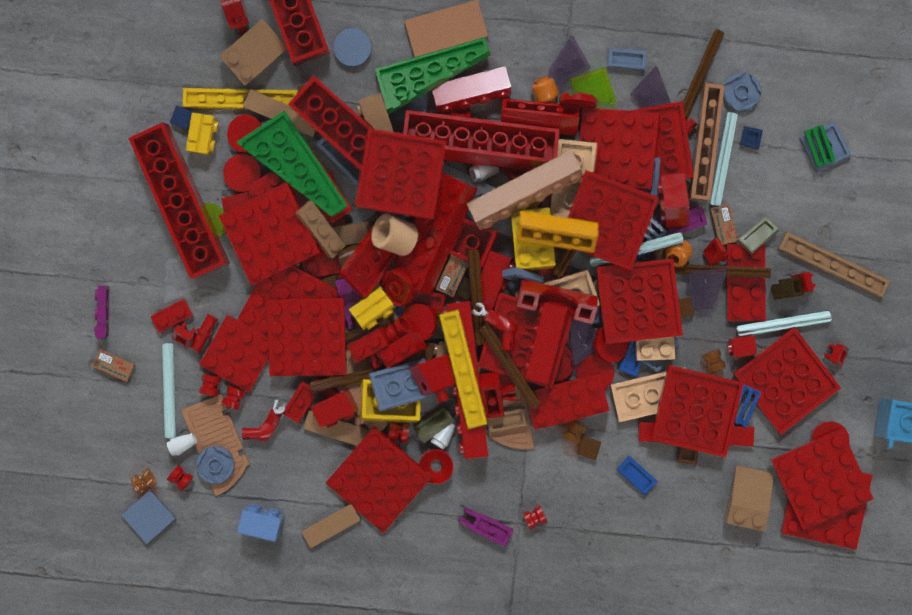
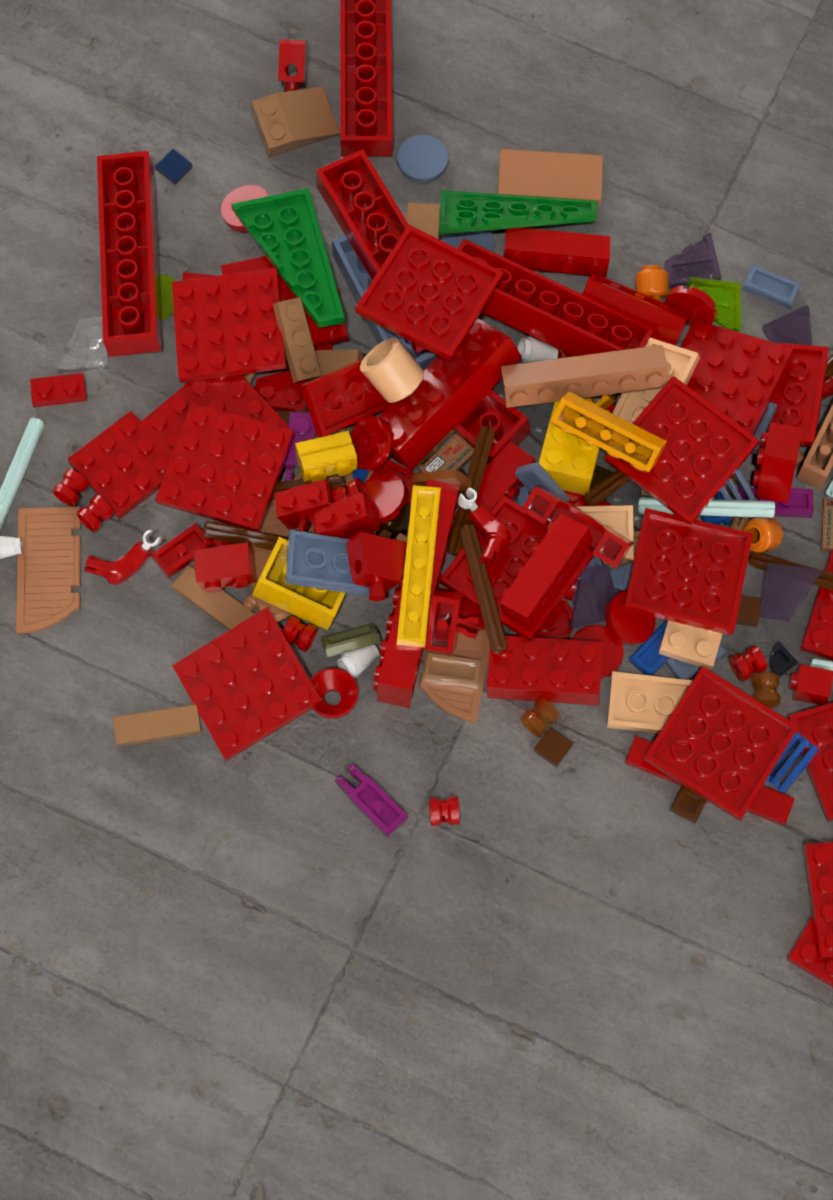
camera: 15 degrees right, 20 degrees down
(183, 336) = (62, 416): red tile -> none
(202, 134) = (190, 190): yellow brick -> none
(203, 333) = (90, 422): red pin -> none
(215, 464) = (33, 590): sand blue tile -> none
(228, 97) = (249, 167): yellow tile -> none
(241, 172) = (220, 248): red tile -> none
(261, 522) = (64, 679): medium blue brick -> none
(270, 108) = (282, 180): medium nougat tile -> none
(455, 298) = (450, 476): none -> dark orange tile
(636, 475) = (607, 807): blue tile -> none
(696, 346) = (748, 663): none -> red wheel
(715, 252) = (814, 551): red tile -> none
(716, 334) = (781, 660): none -> black tile
(749, 498) = (756, 894): medium nougat slope -> none

